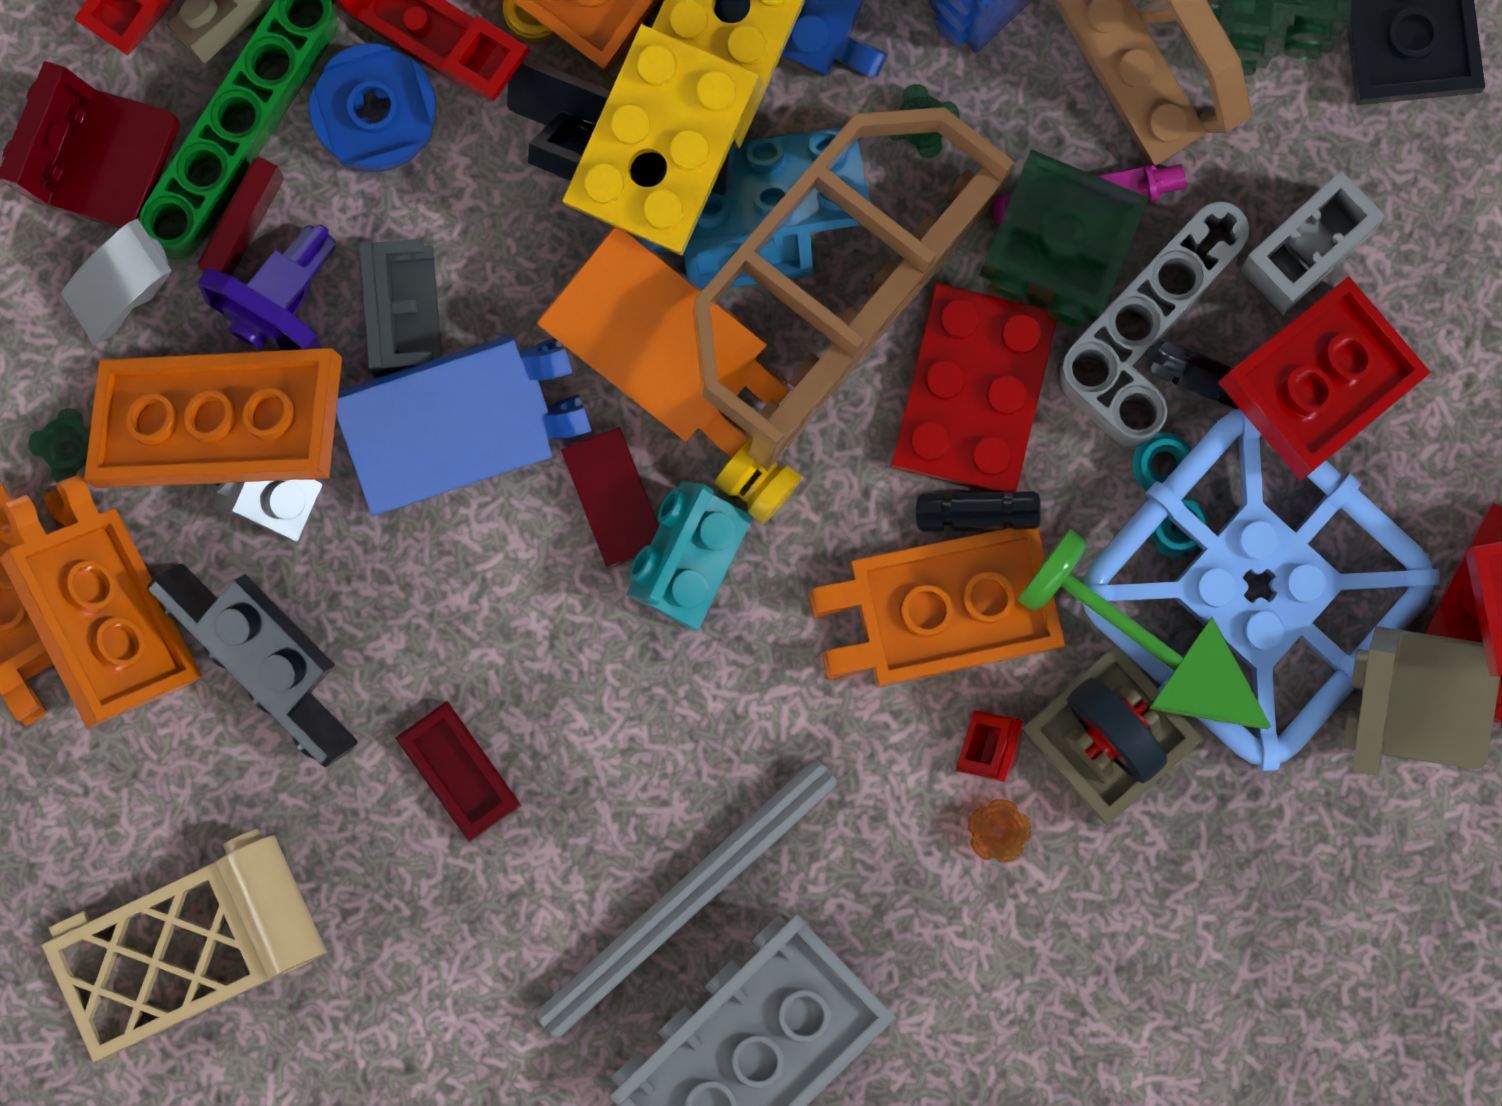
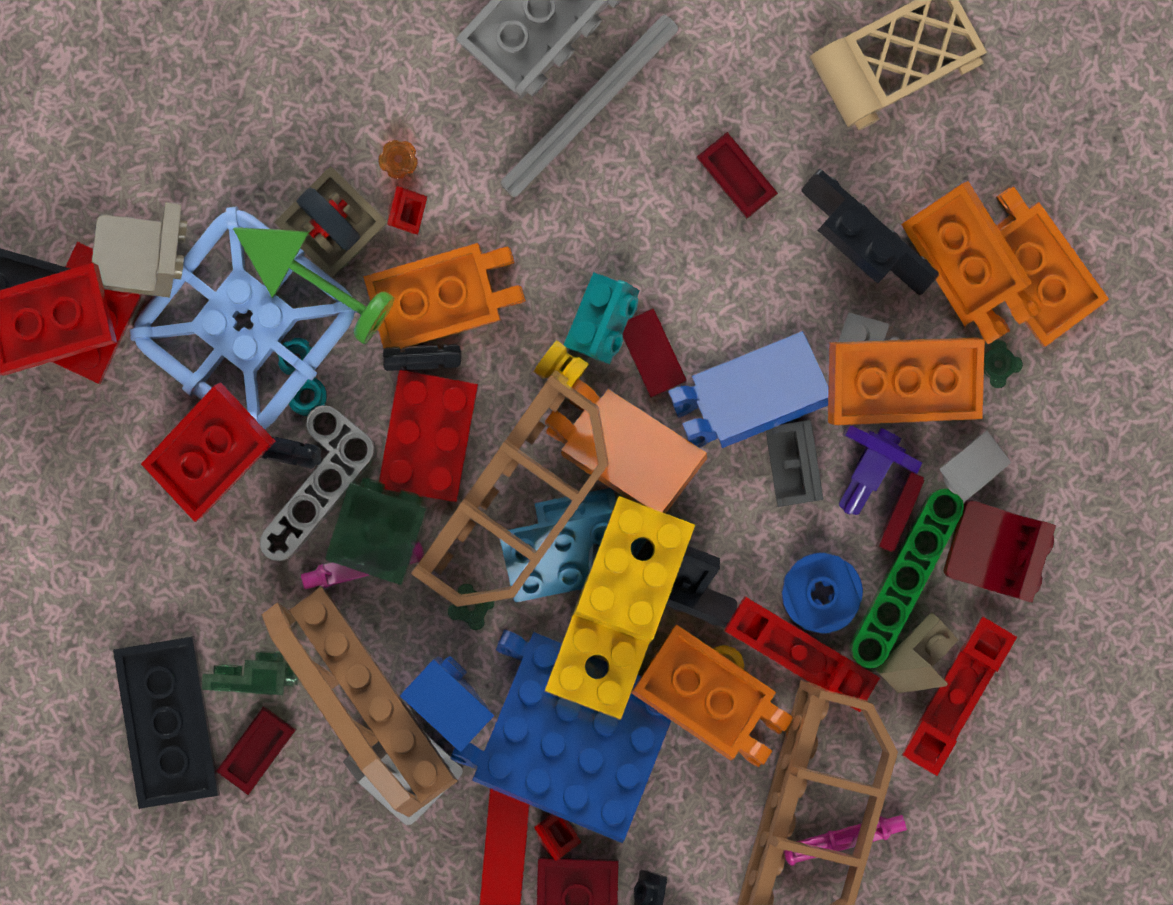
camera: 175 degrees left, 5 degrees up
(1312, 243) = (219, 539): light grey brick -> none

